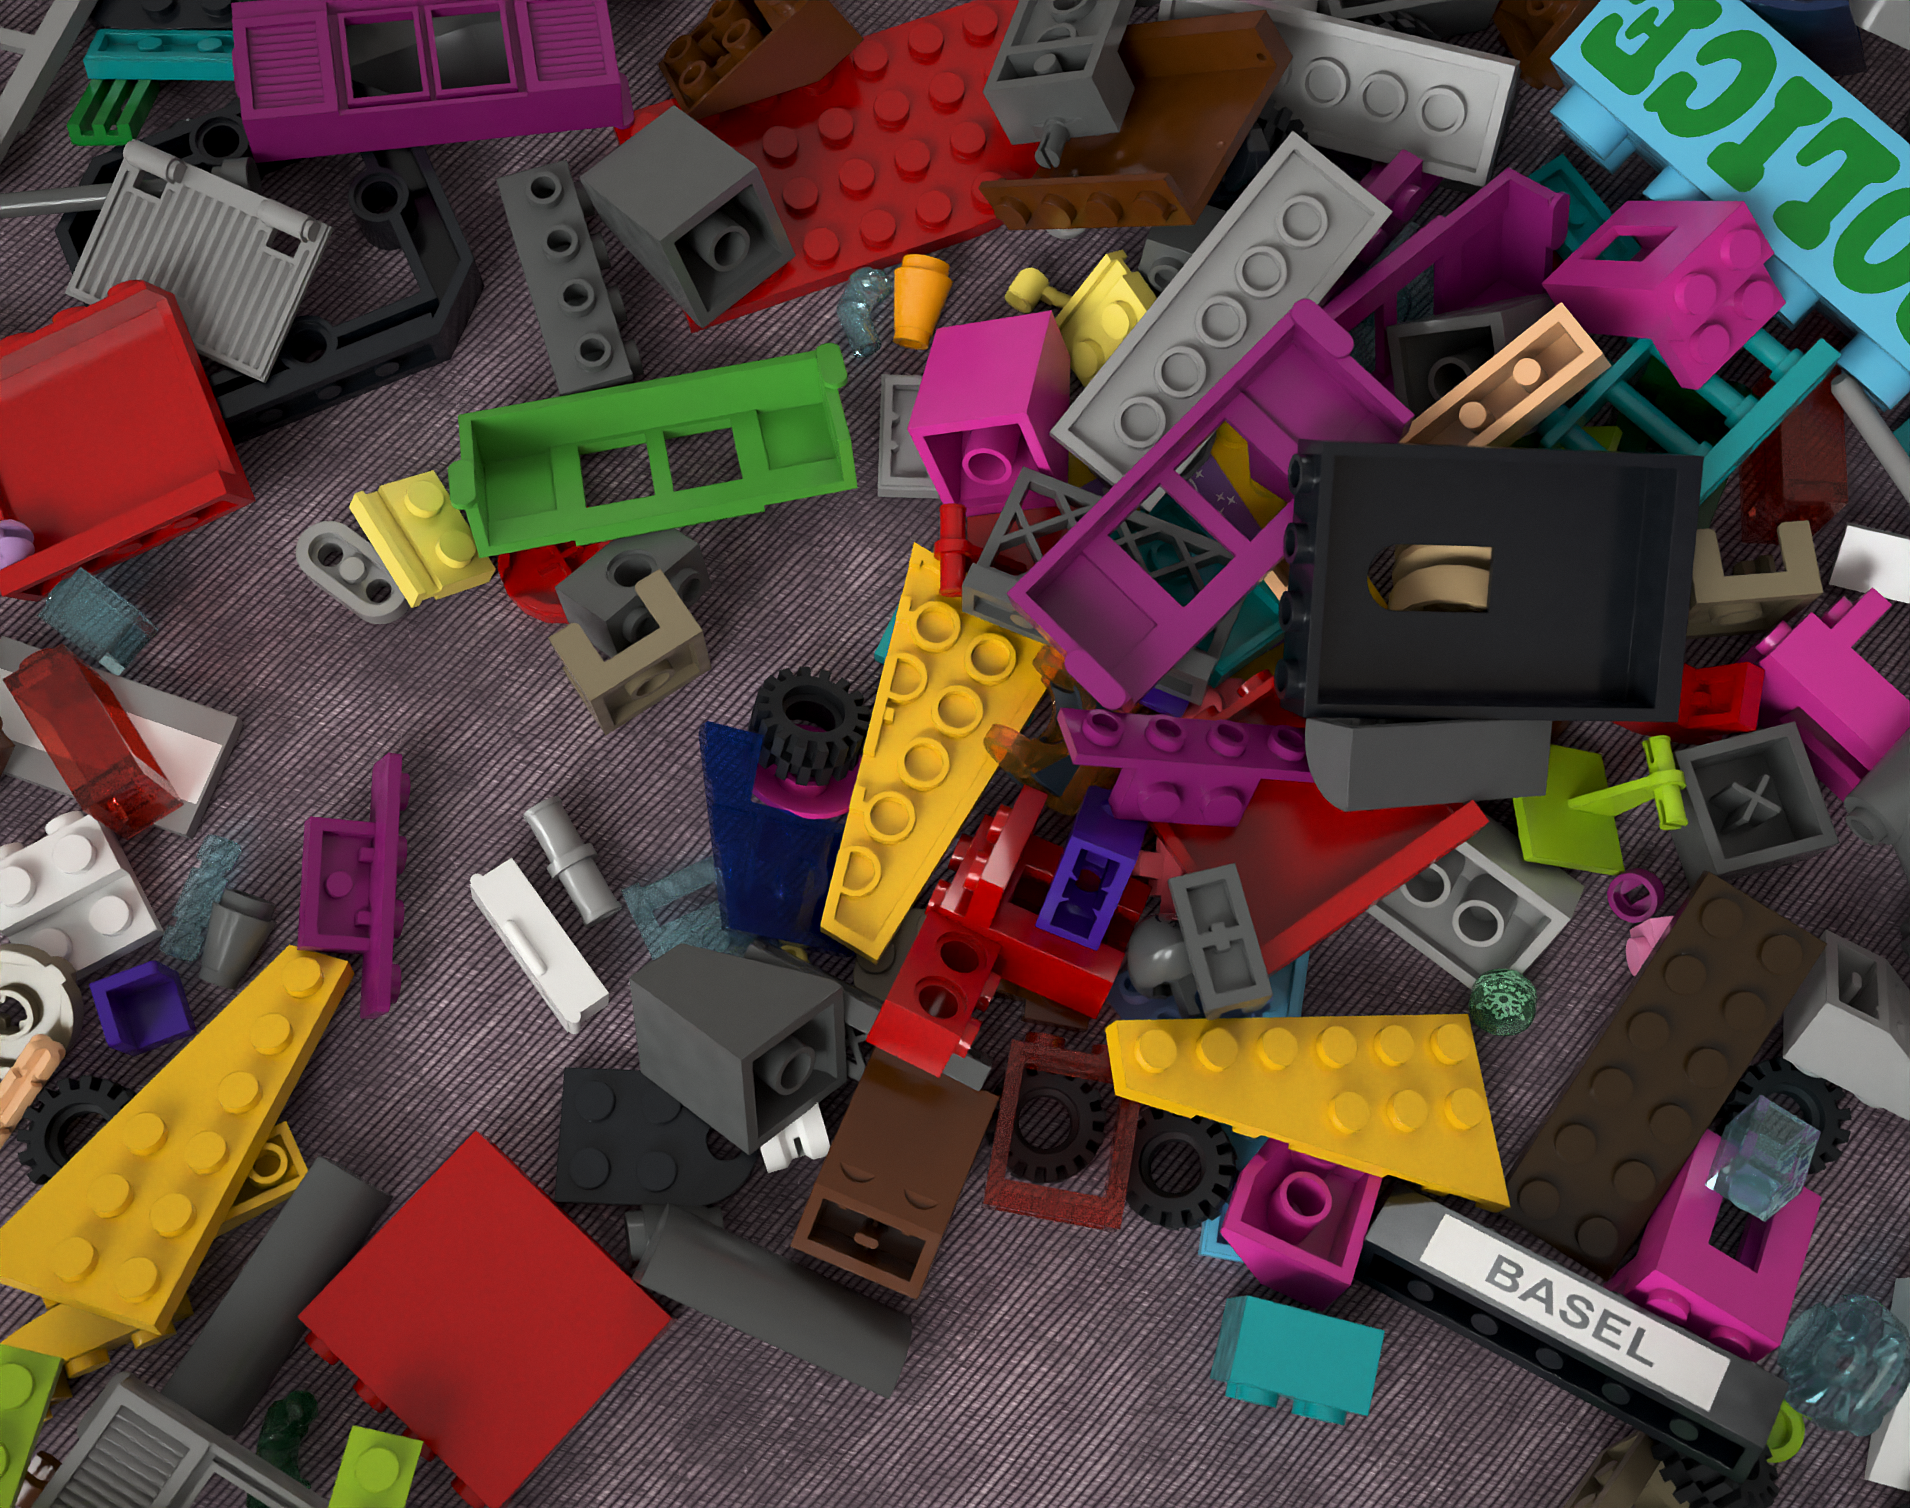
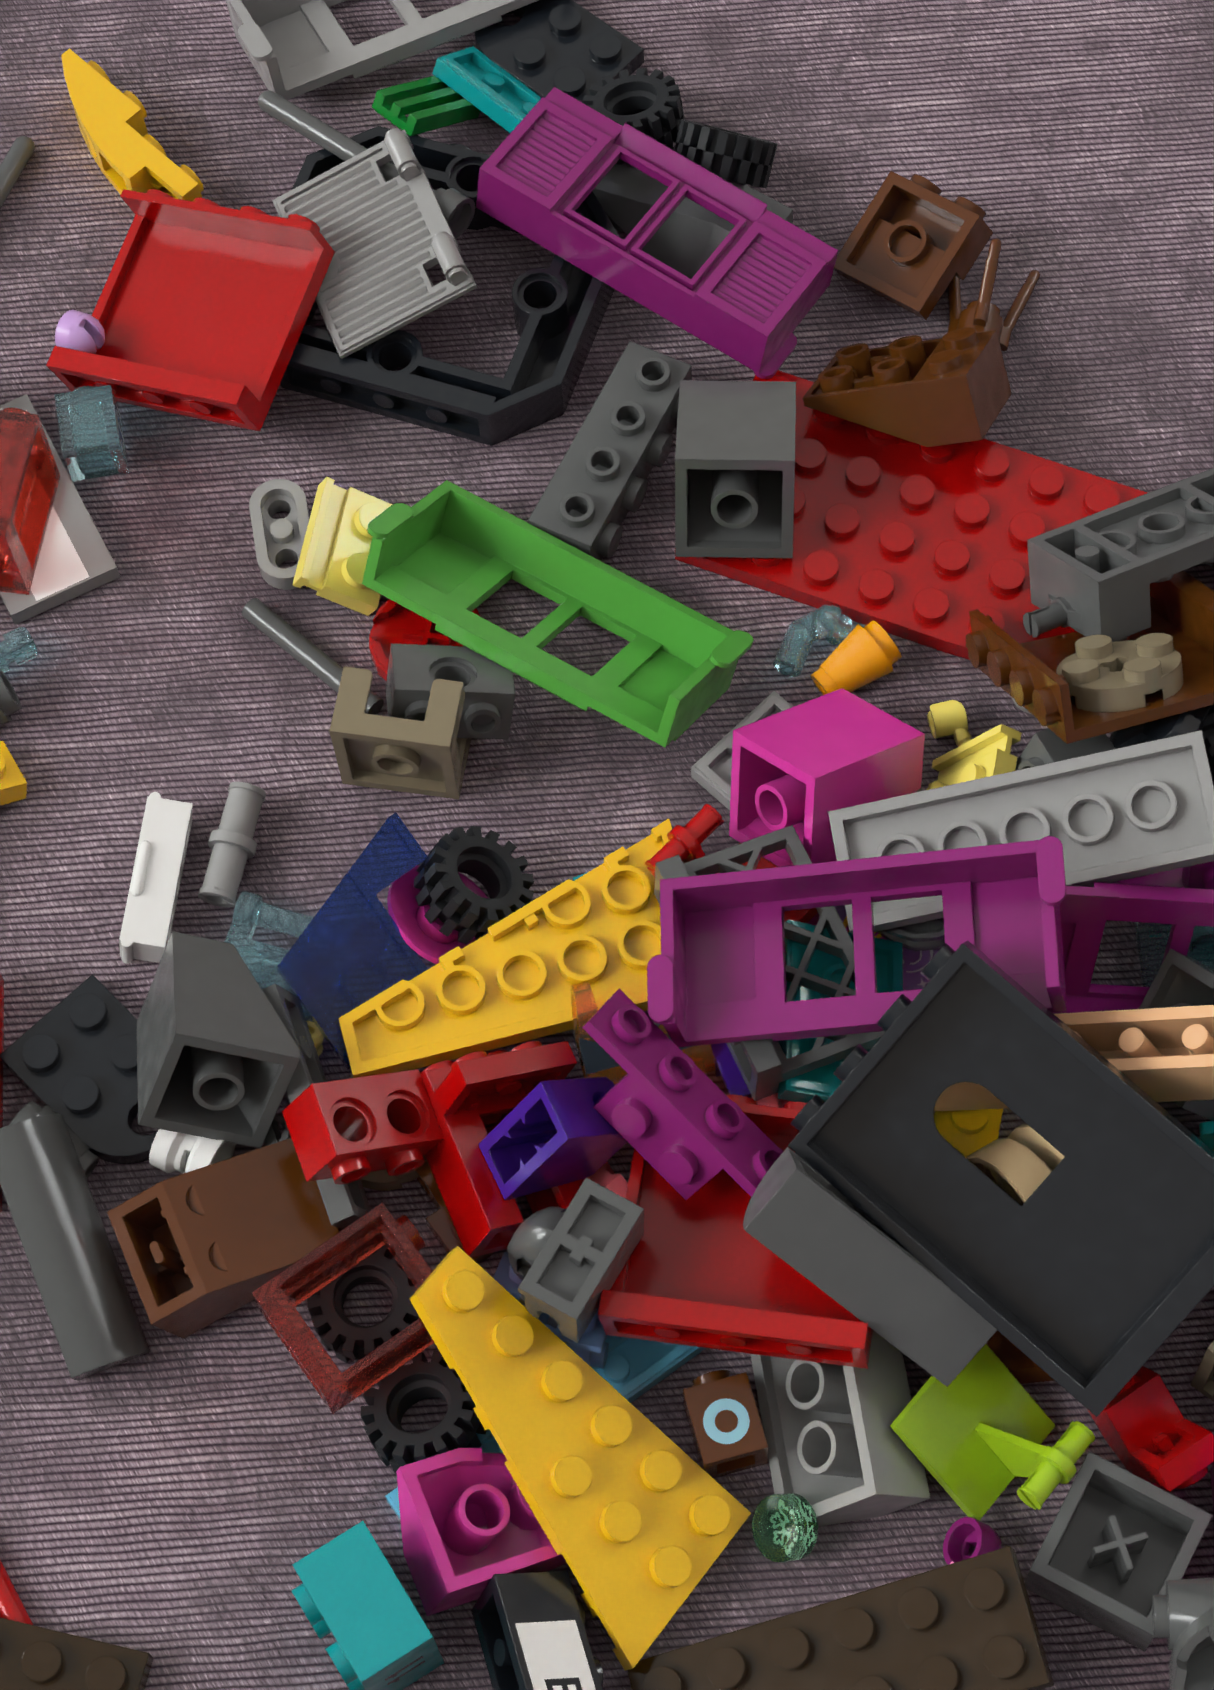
camera: 55 degrees right, 10 degrees down
(351, 886) = (74, 733): magenta bracket -> none
(469, 654) = (301, 648): none -> dark grey bar
(1168, 133) = (1120, 673): none -> dark tan plate
(1390, 966) = (725, 1423): none -> reddish brown brick

